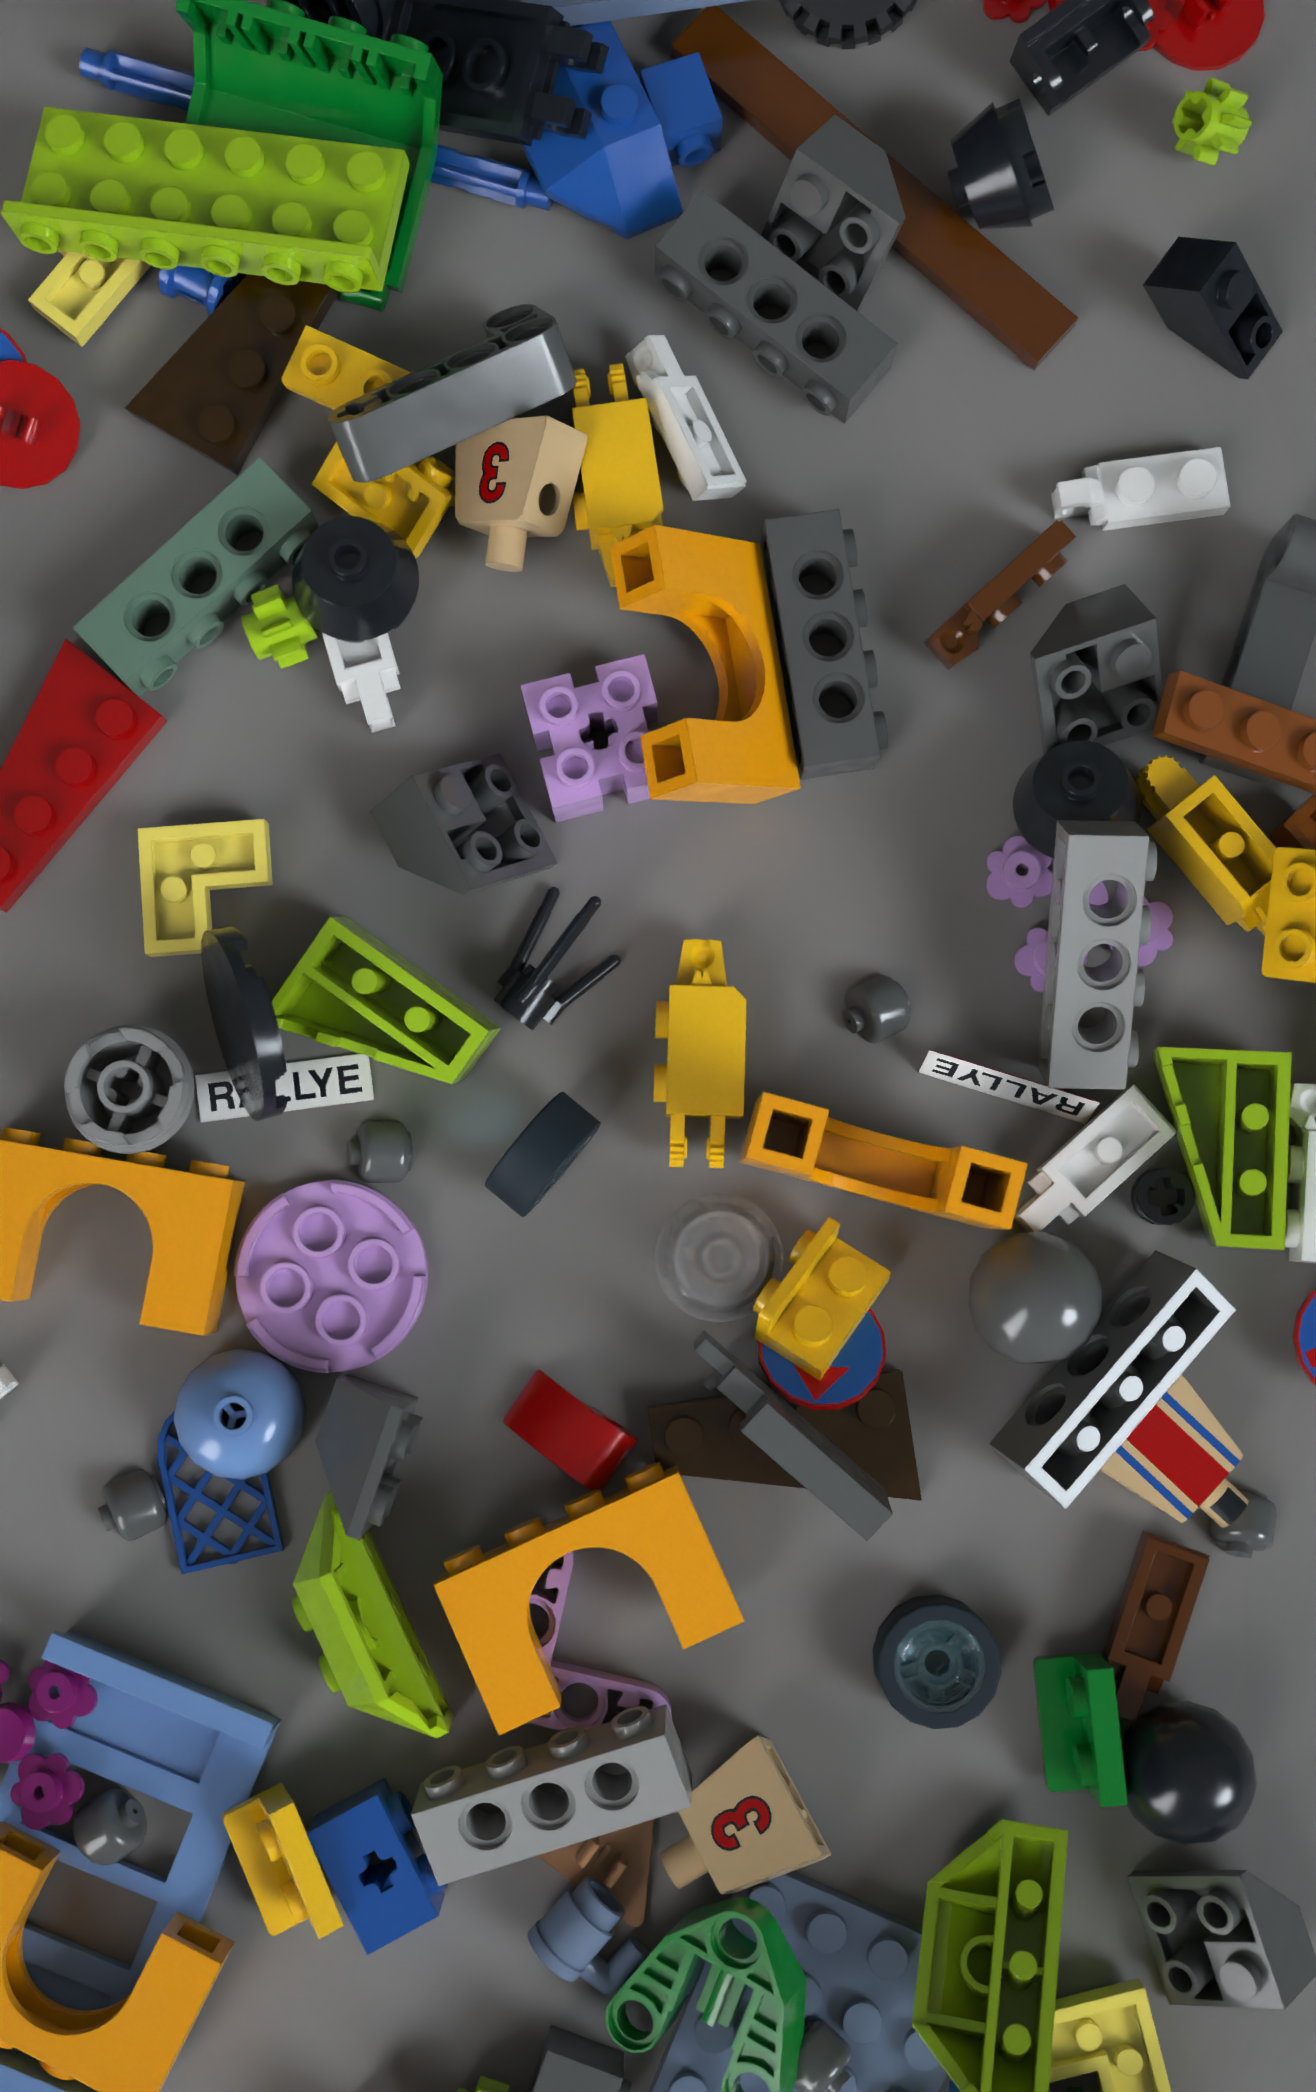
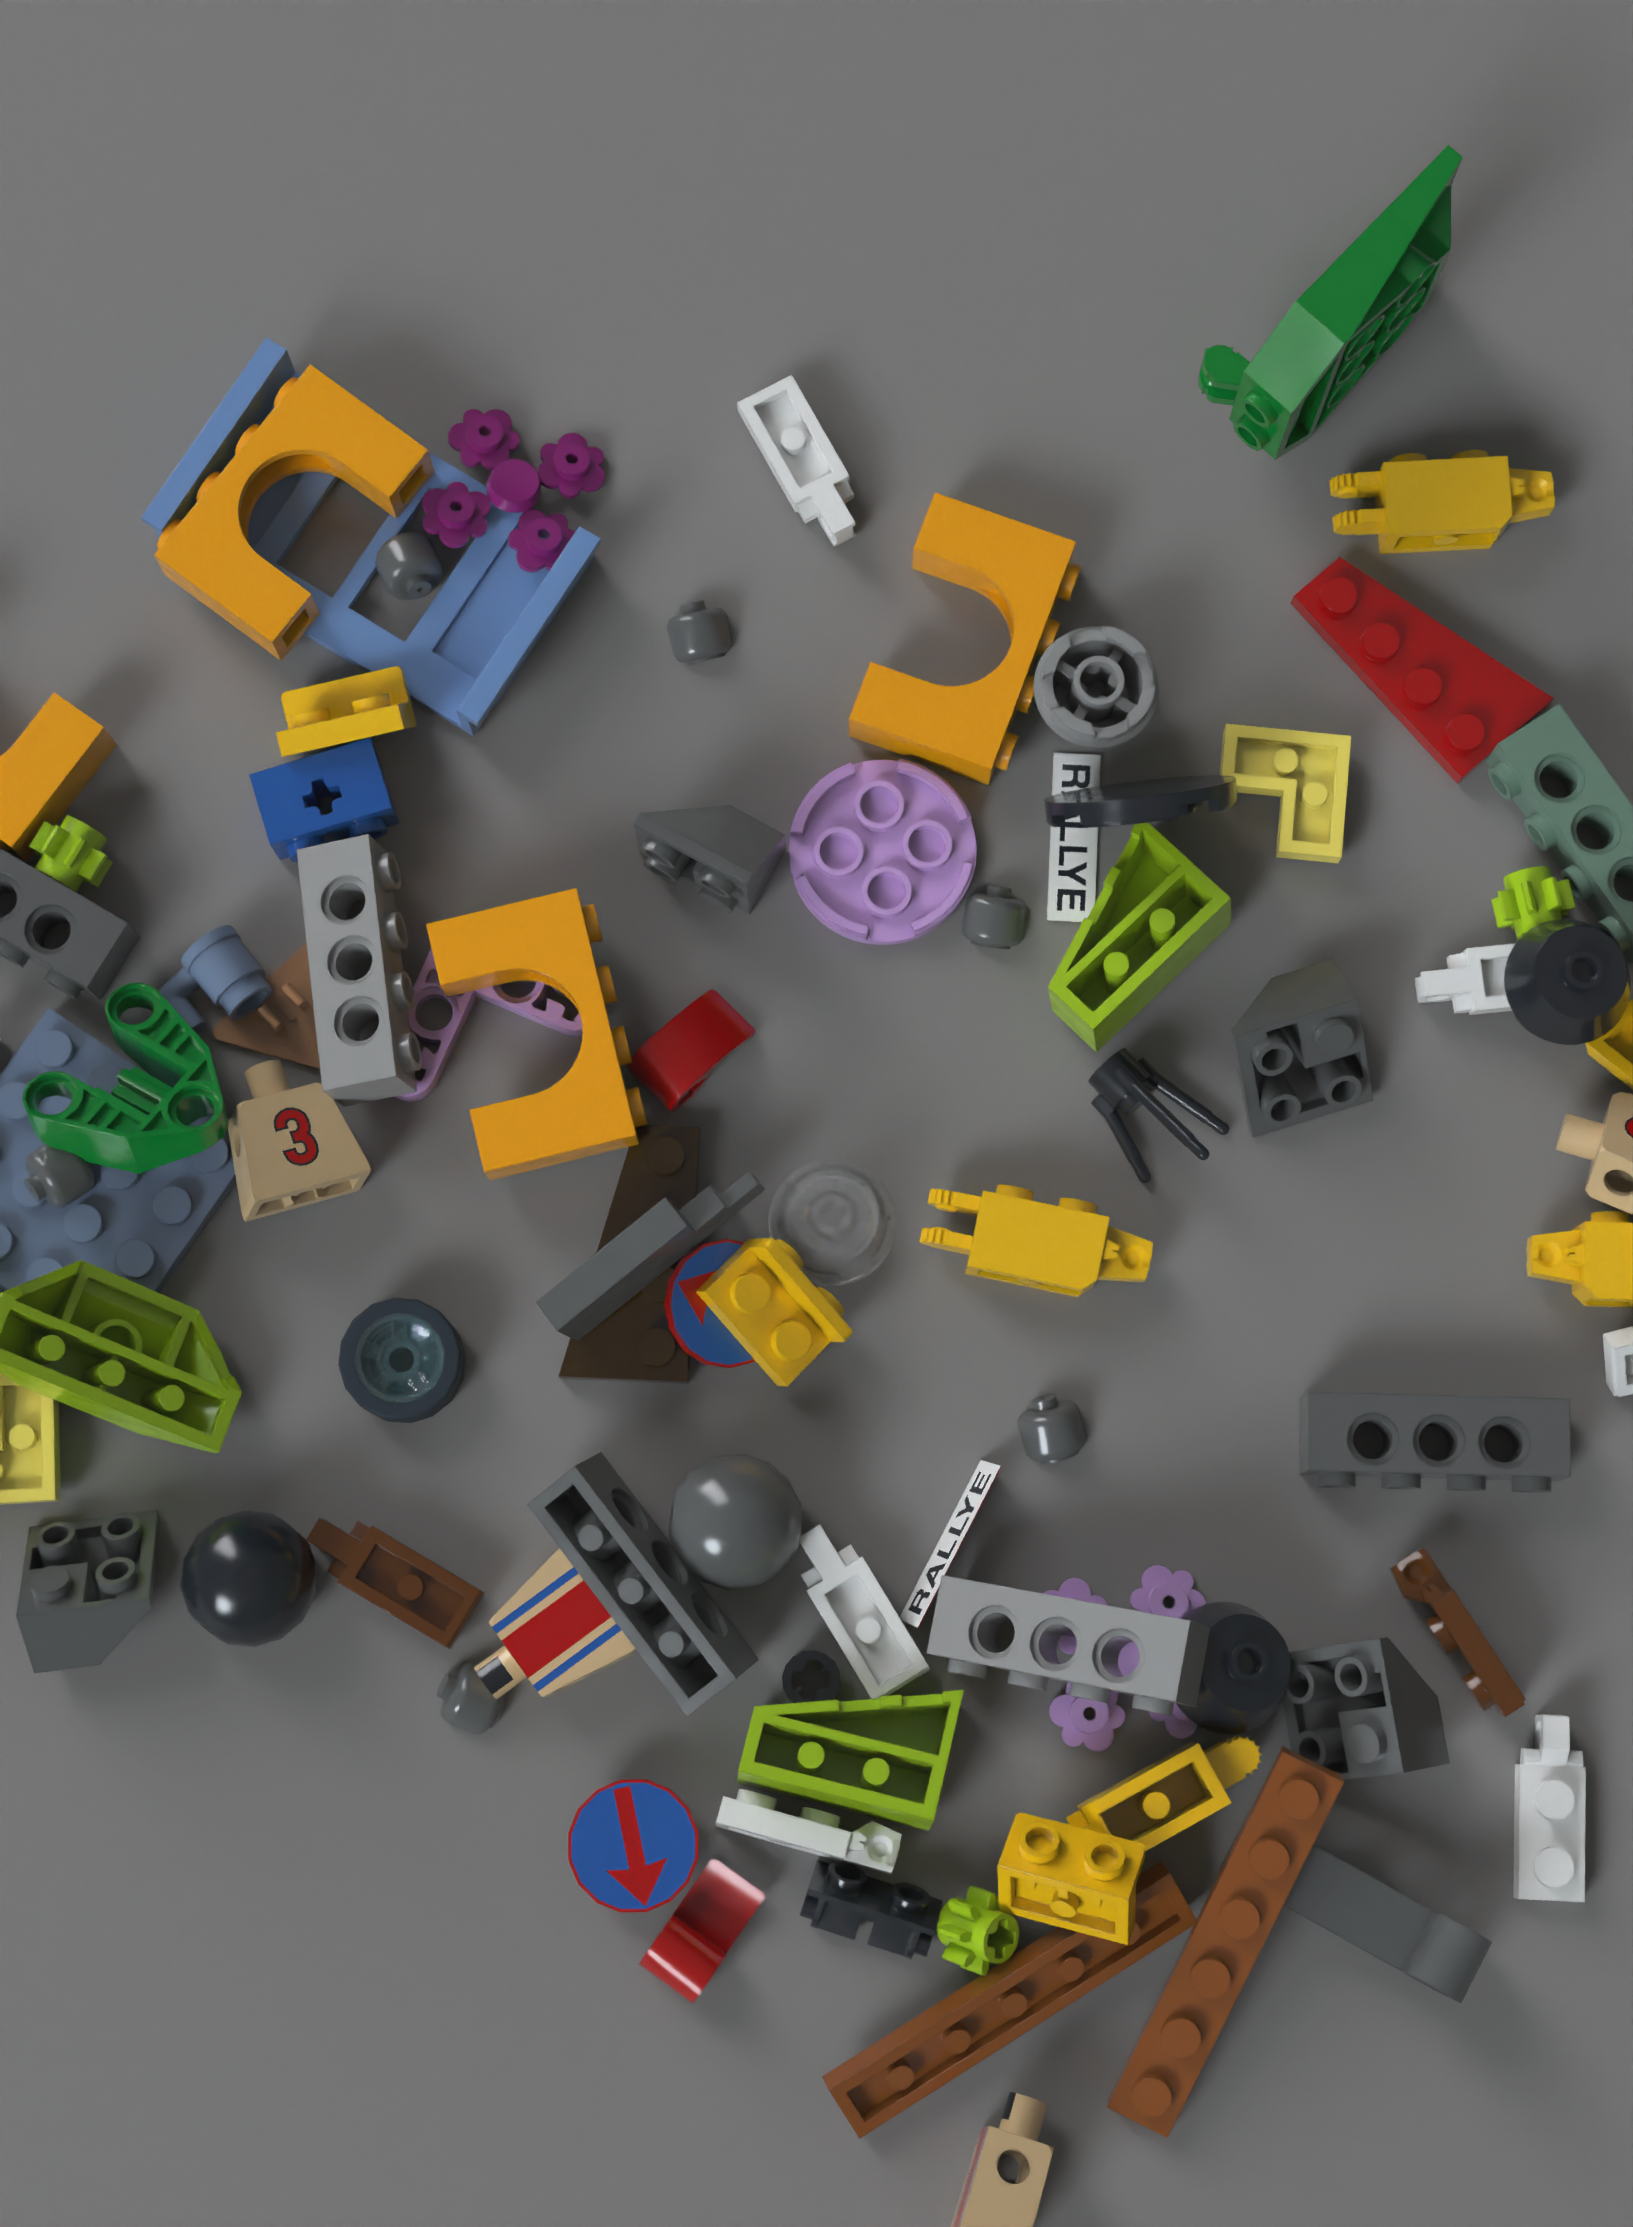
camera: 105 degrees right, 5 degrees down
(178, 1521) = (725, 754): blue window -> none
(272, 1412) = (767, 771): medium blue cylinder -> none
(365, 1629) = (543, 825): lime wedge -> none
(542, 1153) = (964, 1065): black wheel -> none
(565, 716) = (1345, 1227): lavender brick -> none
(723, 597) = (1493, 1347): light orange arch -> none
(931, 1179) = (899, 1381): light orange arch -> none
(1080, 1726) = (313, 1484): green bracket -> none

